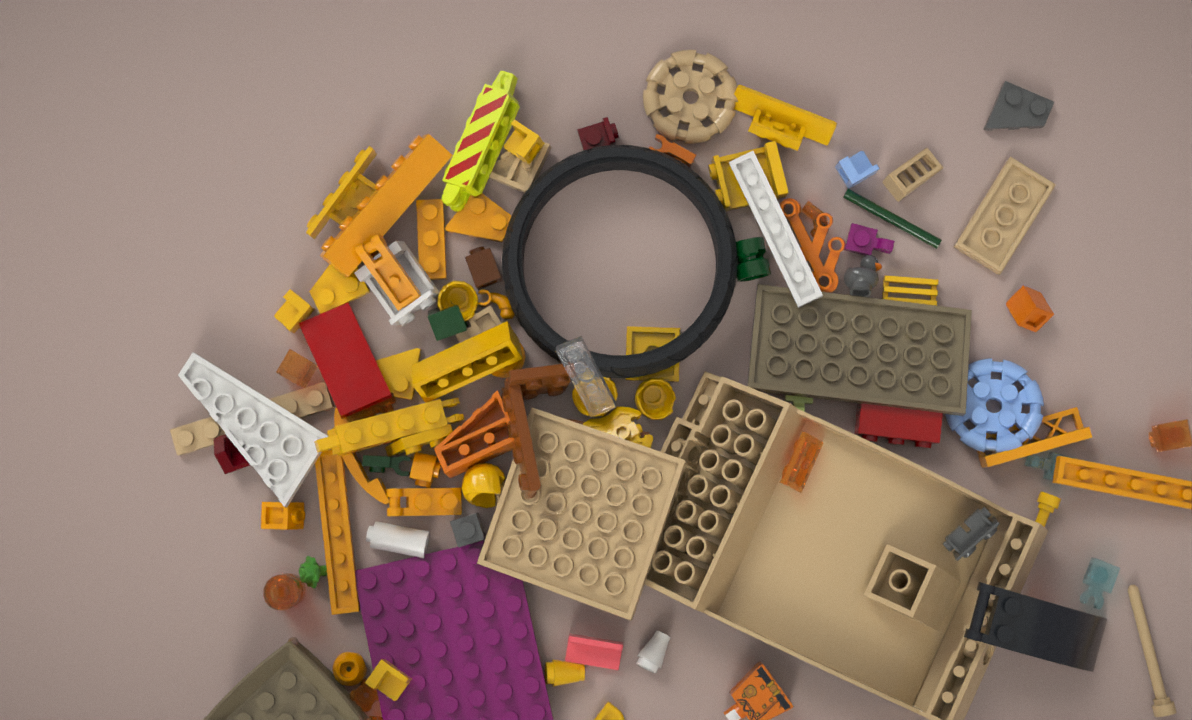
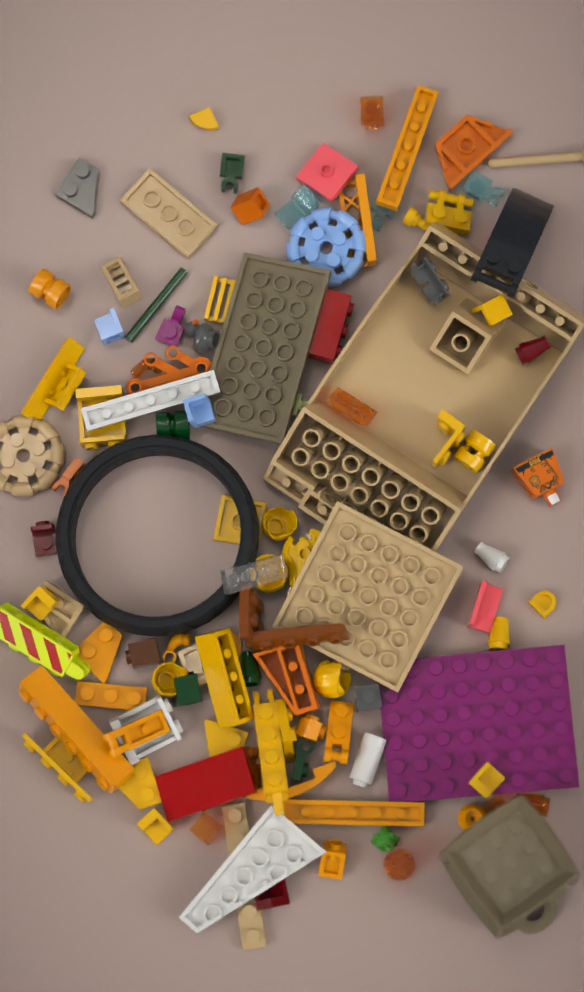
camera: 85 degrees left, 5 degrees down
(482, 390) = (250, 669): none -> dark green cone
(772, 286) = (199, 410): none -> light blue panel
(779, 619) = (479, 444): none -> yellow wheel
(795, 578) = (448, 425): none -> yellow bracket
(888, 96) = (47, 287): none -> light orange wheel
(907, 667) = (532, 349): none -> dark red cone
(947, 615) = (494, 310): none -> yellow panel
(1043, 369) = (301, 204): none -> clear light blue panel
(1055, 549) = (452, 218): none -> yellow plate
(1071, 280) = (231, 169): none -> dark green plate
(1086, 393) = (327, 172): none -> coral plate
(1126, 239) = (204, 119): none -> yellow tile
(1148, 557) = (467, 147): none -> orange wing

